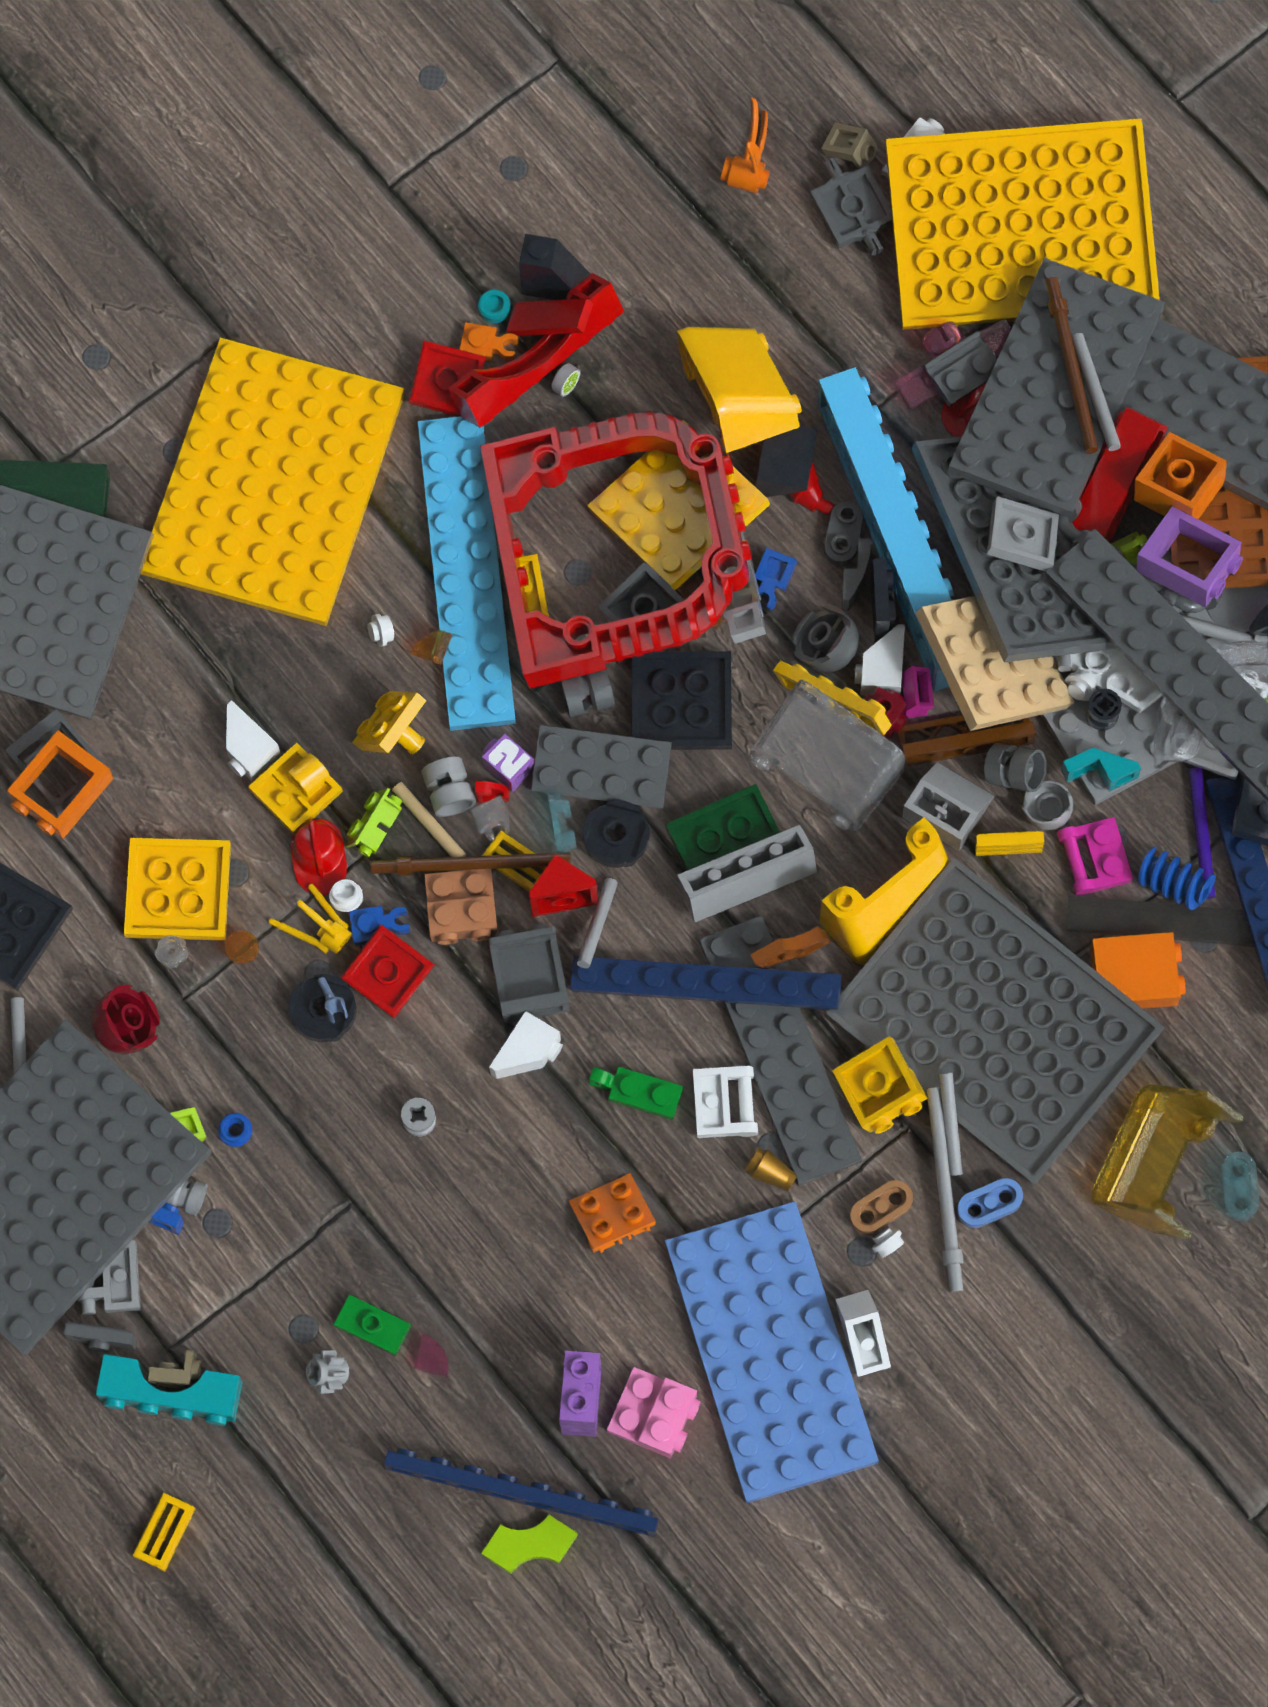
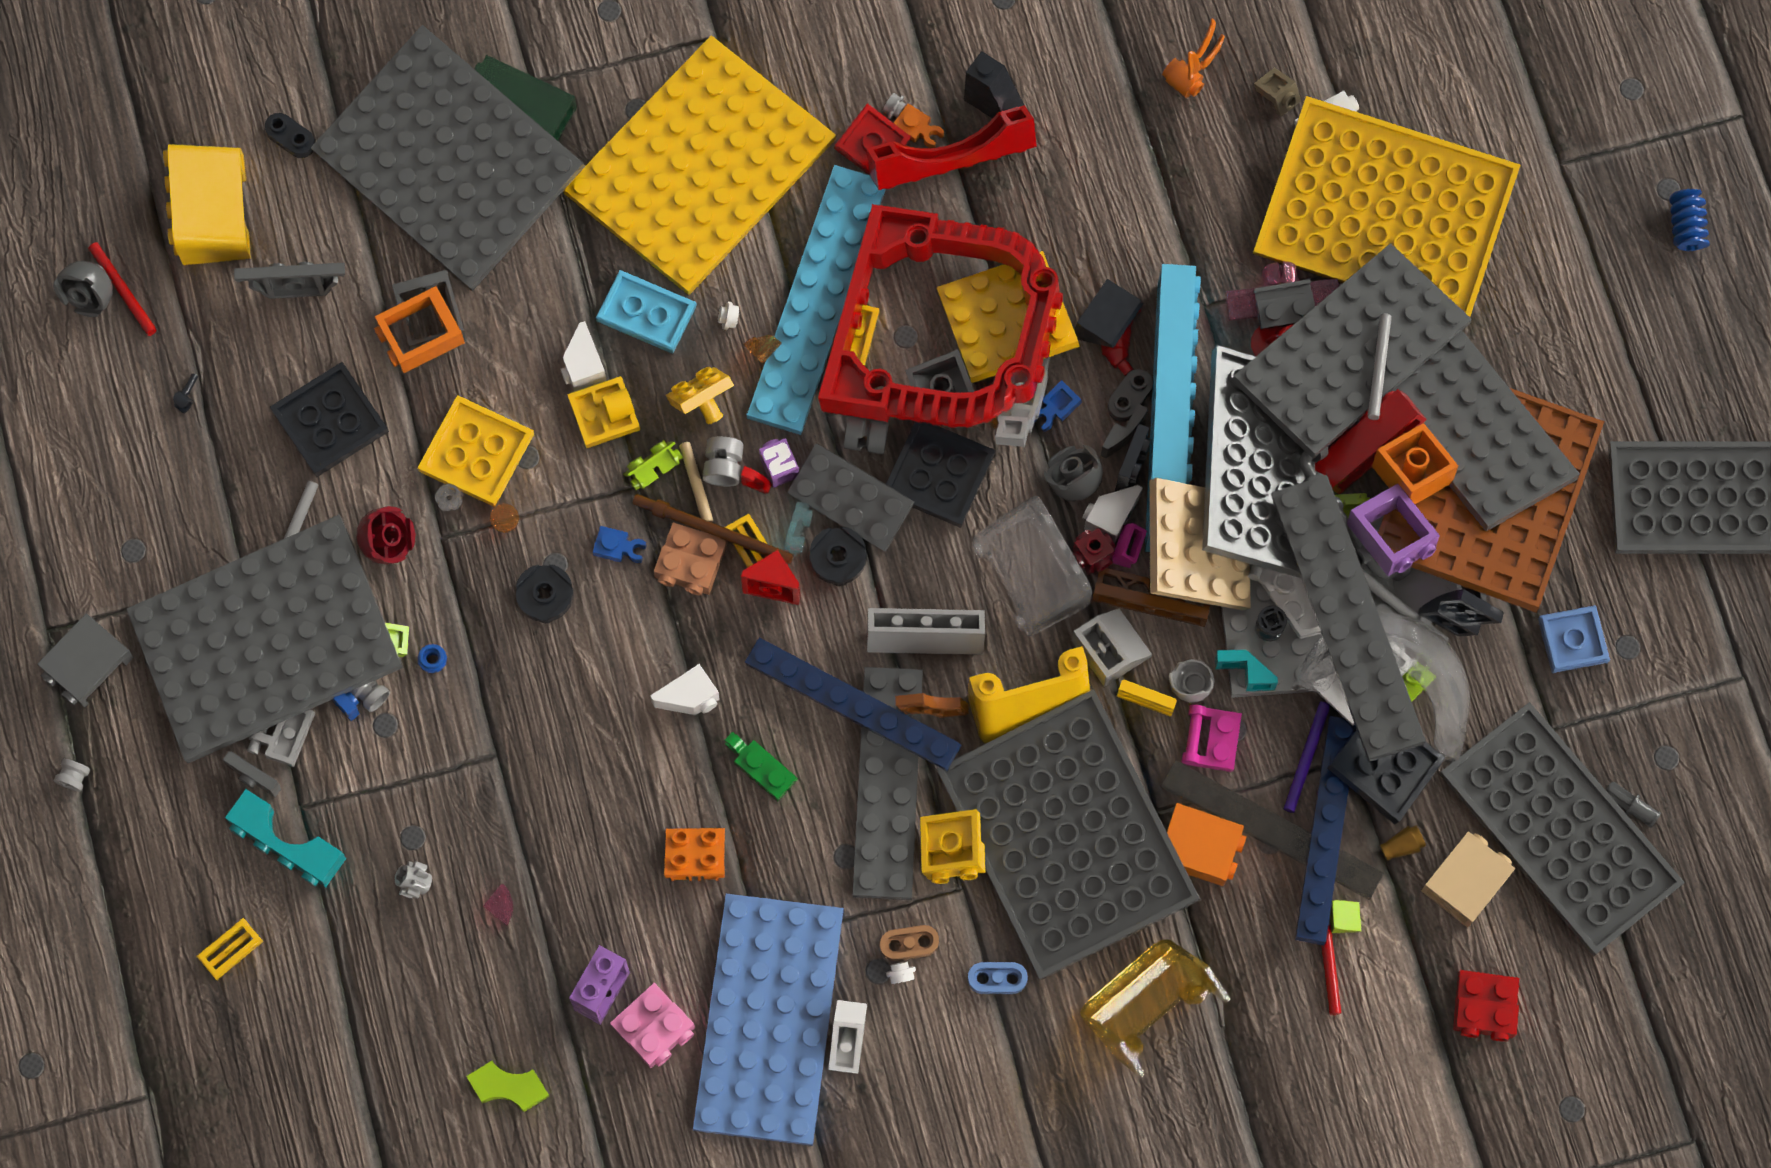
camera: 20 degrees right, 0 degrees up
(172, 1377) = (291, 828): dark tan bracket -> none
(289, 663) = (646, 311): none -> medium azure tile
(318, 855) = (598, 473): red piece -> none
(332, 934) = (578, 539): yellow plant -> none
(332, 1004) = (552, 593): sand blue hand -> none
(346, 895) = (603, 512): white plate -> none
(372, 1325) = (466, 858): green plate -> none
(387, 971) = (608, 586): red plate -> none
(422, 1122) = (581, 716): light grey wheel -> none
(452, 331) = (894, 106): none -> light grey plate
(491, 815) = (745, 498): clear tile -> none
(494, 306) = (937, 100): teal tile -> none
(507, 1488) = (529, 1049): dark blue plate -> none
(528, 973) = (718, 635): dark grey panel -> none
(549, 317) = (974, 126): red tile -> none
(565, 379) = (965, 181): light grey tile -> none
(597, 923) = (789, 619): light grey bar -> none
(713, 1102) = (815, 801): white plate -> none
(722, 827) = (924, 586): dark green plate -> none
(738, 383) = (1098, 240): yellow windscreen -> none
(770, 1170) = (834, 873): pearl gold cone -> none
(852, 206) = (1257, 139): dark grey plate -> none
(869, 711) = (1078, 544): yellow plate -> none
(950, 1123) = (994, 900): light grey bar -> none
(952, 1255) = (948, 1006): light grey bar -> none
(1015, 767) = (1178, 639): dark grey wheel -> none
(1022, 534) = (1267, 455): light grey plate -> none
(1058, 311) = (1380, 290): reddish brown bar -> none
(1081, 685) = (1261, 595): white plate -> none
(1175, 881) = (1264, 785): blue piece -> none
(1241, 1187) = (1204, 1054): clear light blue plate -> none

